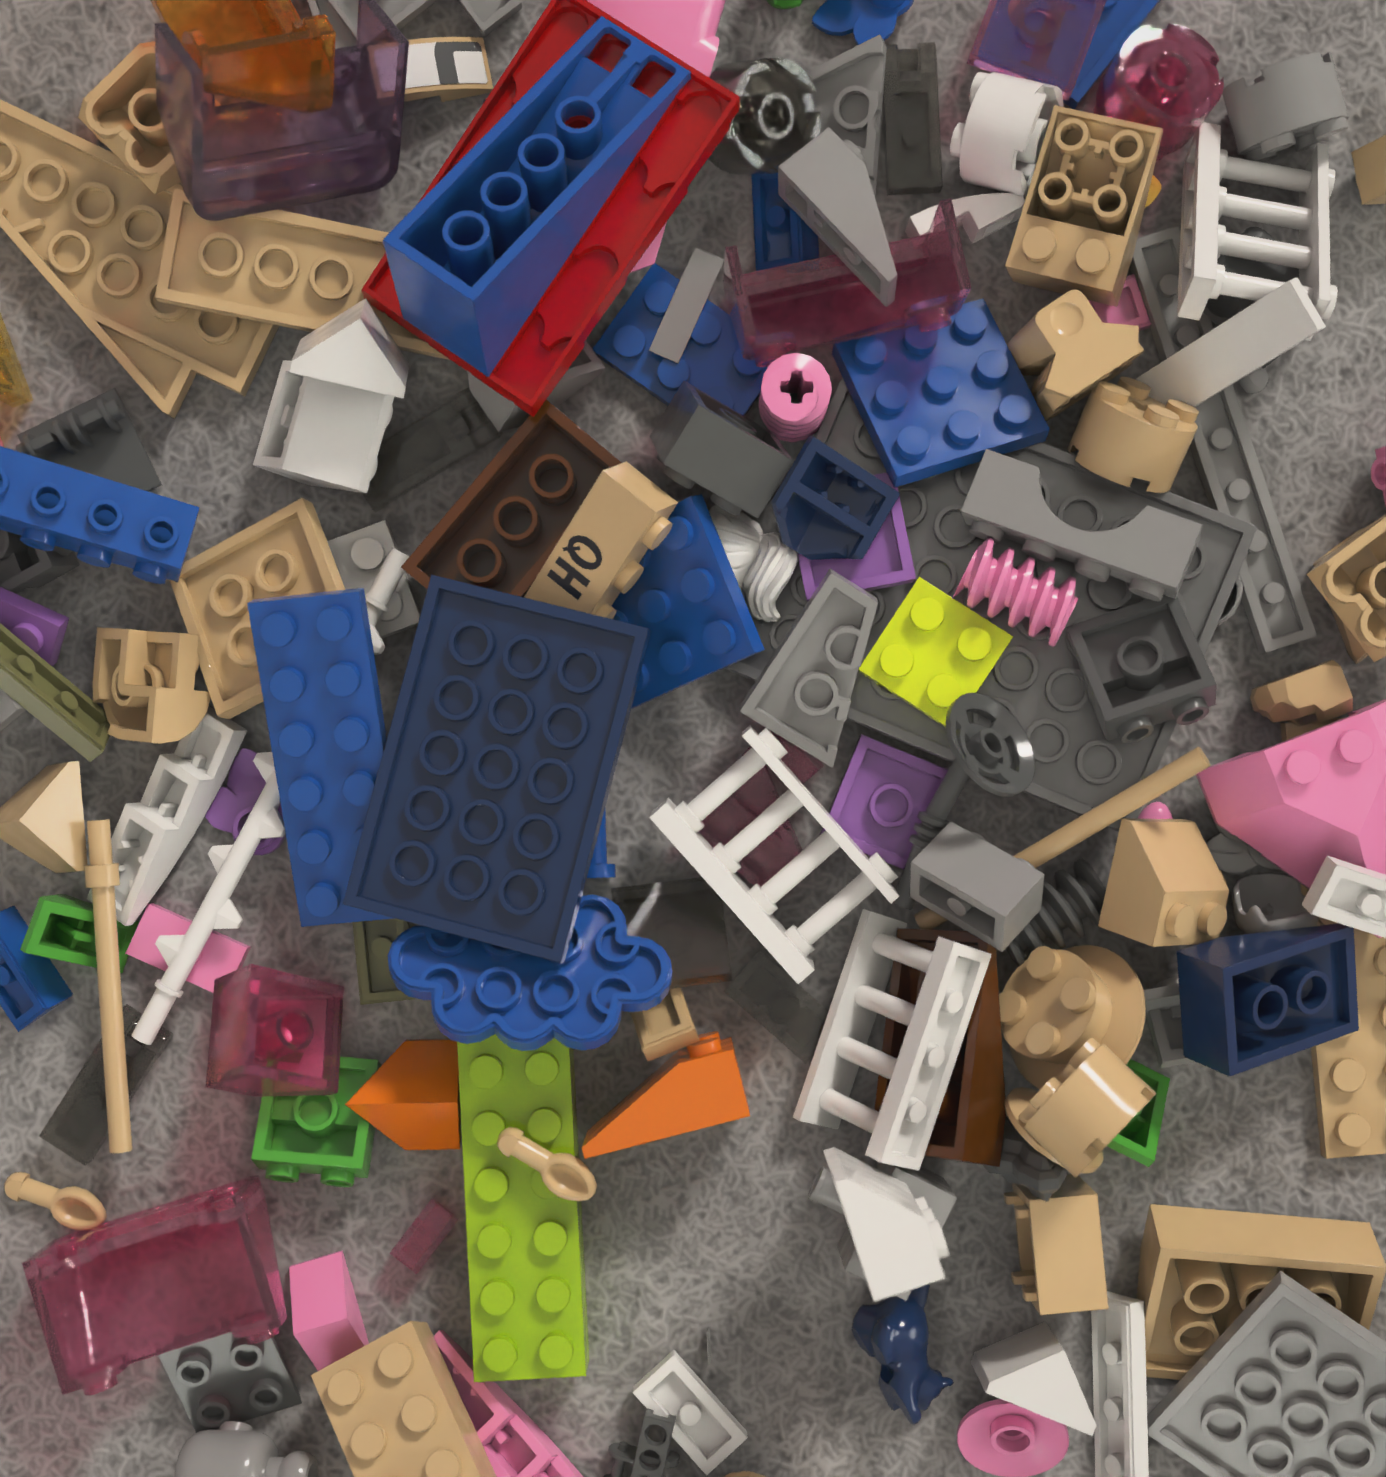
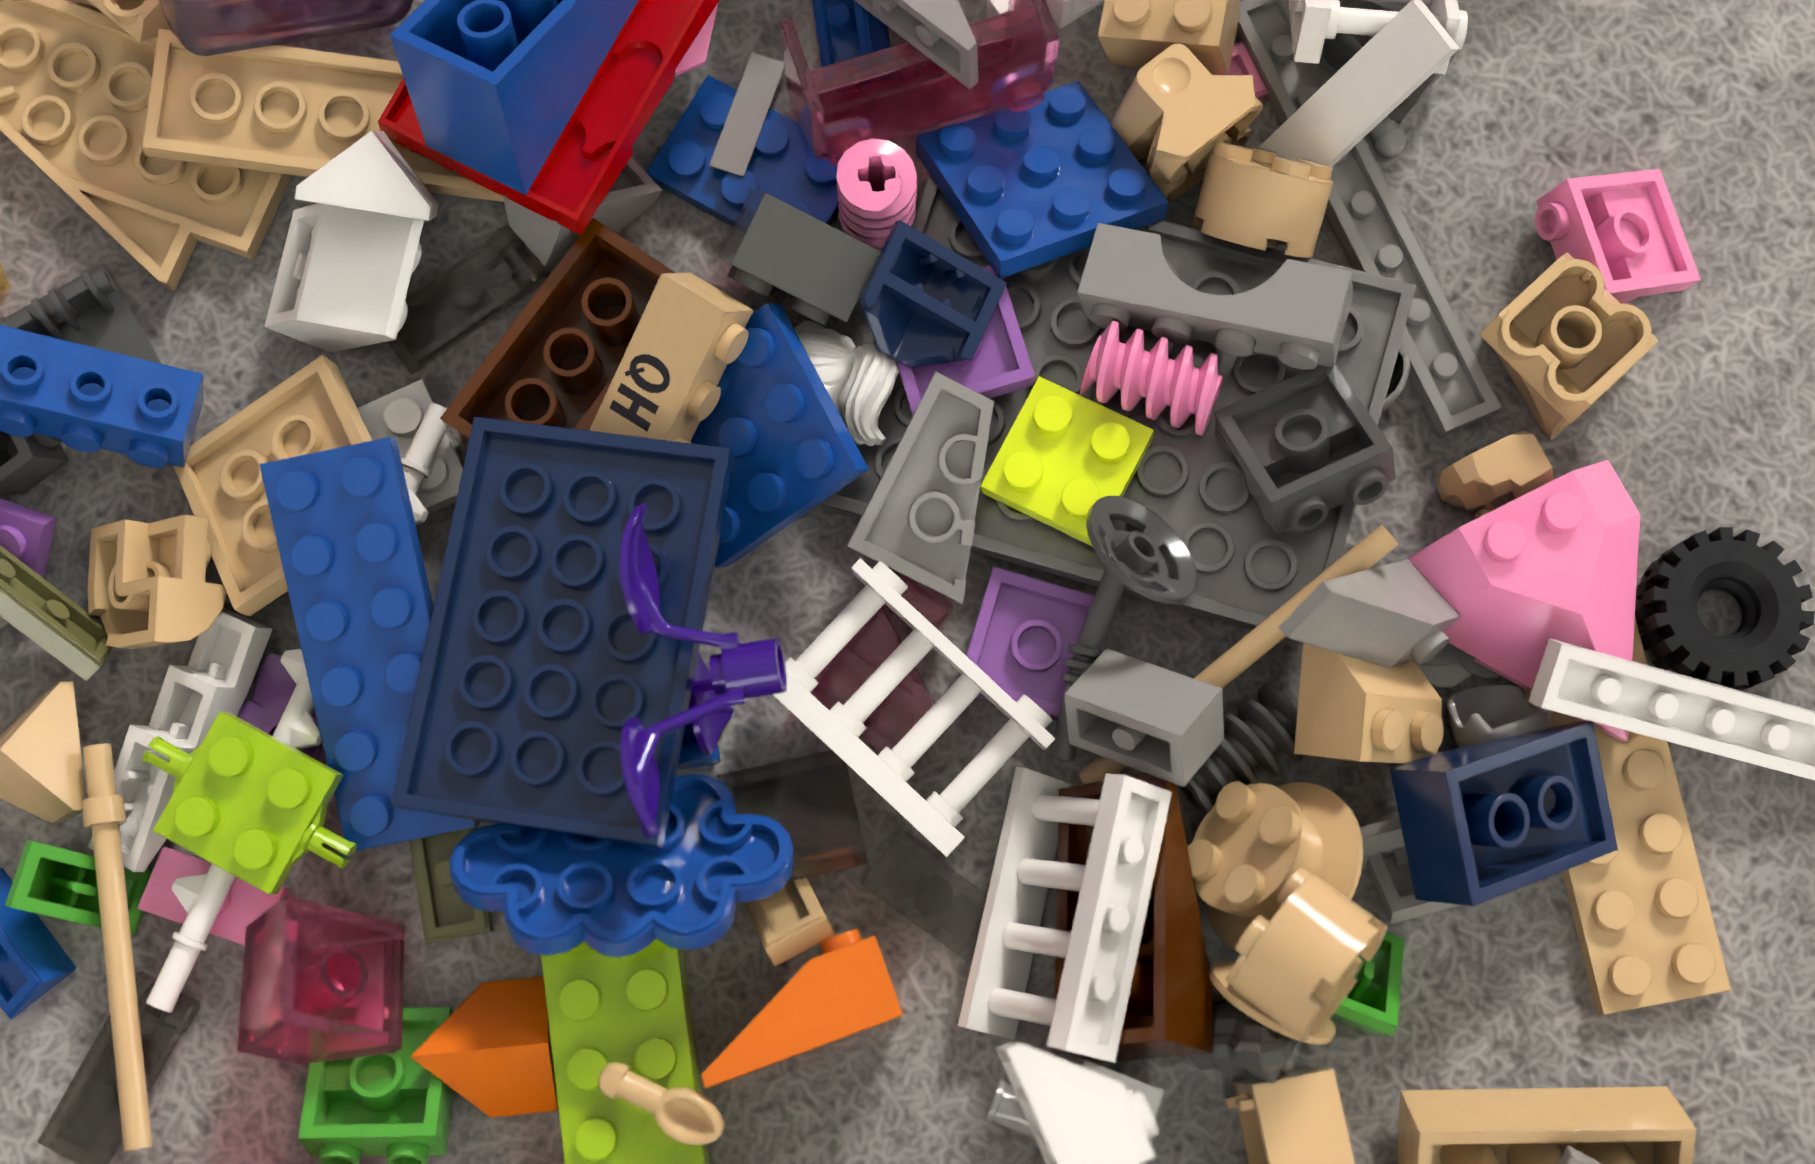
camera: 10 degrees left, 10 degrees down
(223, 883) = (248, 803): none -> lime plate
(640, 825) = (734, 675): none -> dark purple plant
(1184, 820) = (1375, 616): none -> light grey slope

